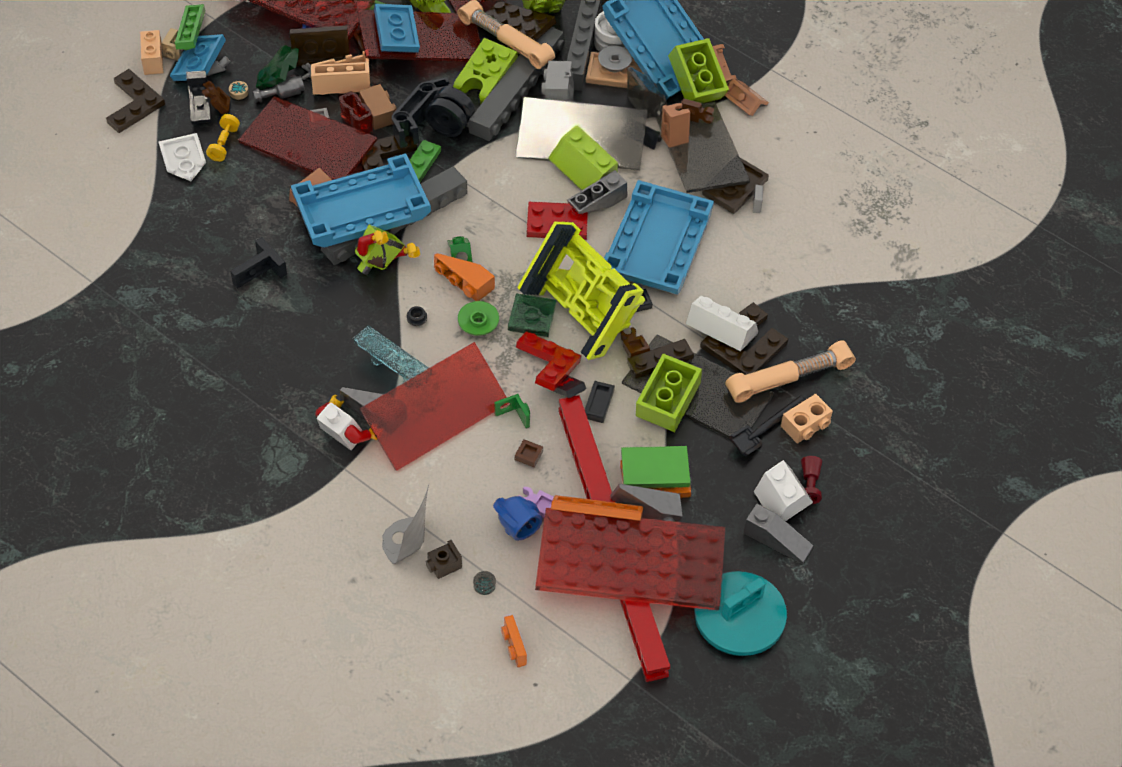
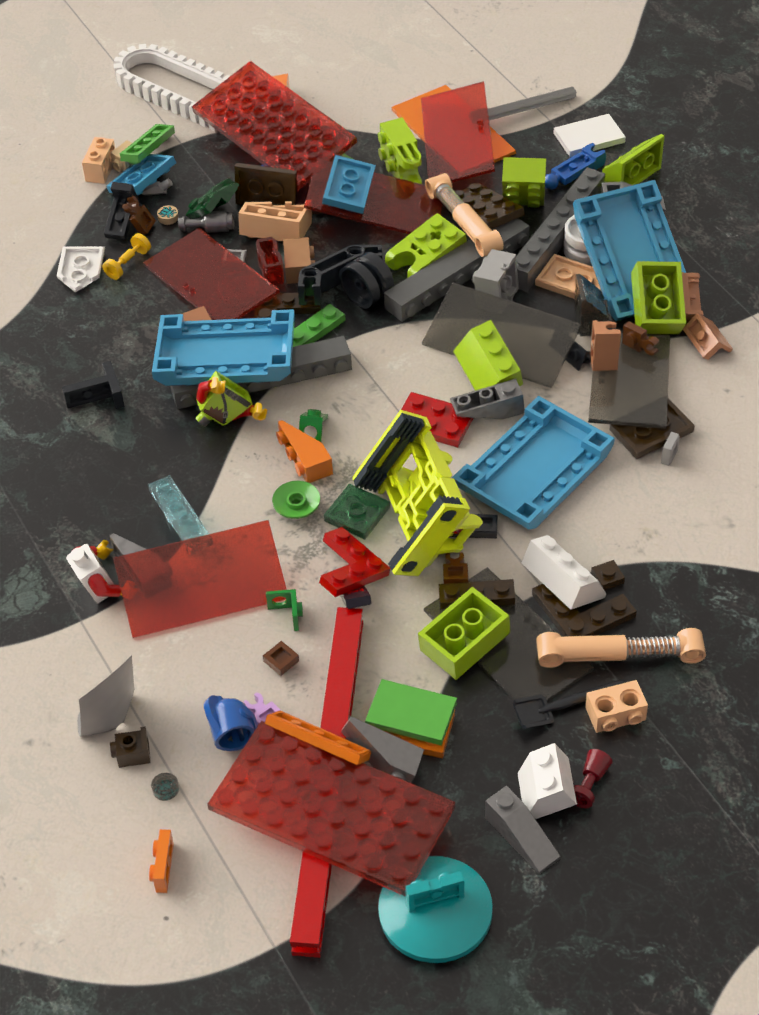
camera: 25 degrees right, 5 degrees down
(144, 103) = (71, 207): dark brown plate -> none
(419, 312) = (233, 481): black plate -> none
(599, 401) = (387, 624): black tile -> none
(614, 58) = (573, 263): light grey piece -> none

